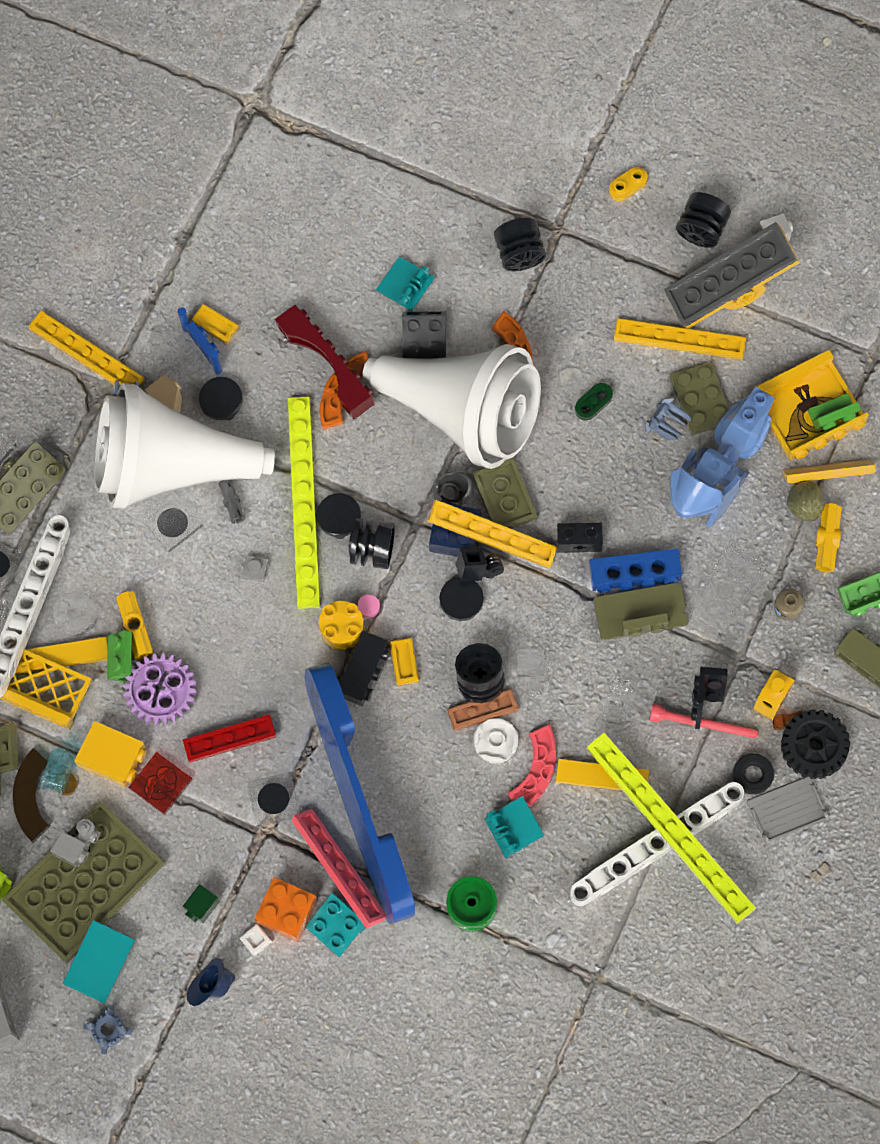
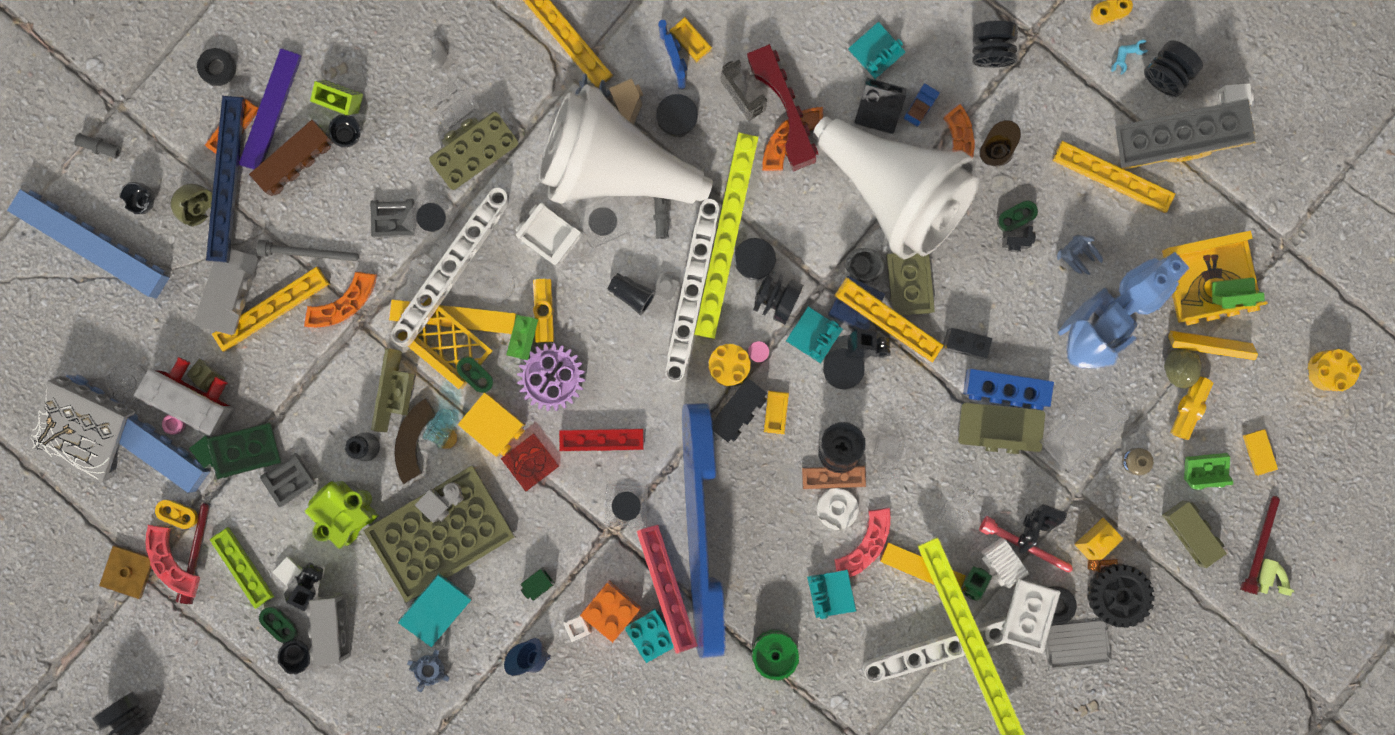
camera: 15 degrees right, 15 degrees up
(80, 704) = (474, 374): none -> dark green plate
(119, 550) = (548, 234): none -> white panel
(221, 582) = (631, 293): none -> black plant
(283, 577) = (694, 276): none -> white beam
(292, 371) = (749, 110): none -> clear smoke panel
(421, 573) = (814, 334): none -> teal hinge
(465, 321) = (921, 104): none -> leg
(554, 336) = (1000, 143): none -> dark brown piece
(601, 427) = (1015, 244): none -> black bracket
(652, 217) = (1123, 51): none -> medium azure arm
(661, 771) = (976, 583): none -> dark green brick
(684, 745) = (1004, 563): none -> white brick
(700, 397) = (1116, 240): olive plate -> none
(724, 786) = (1030, 616): none -> white tile

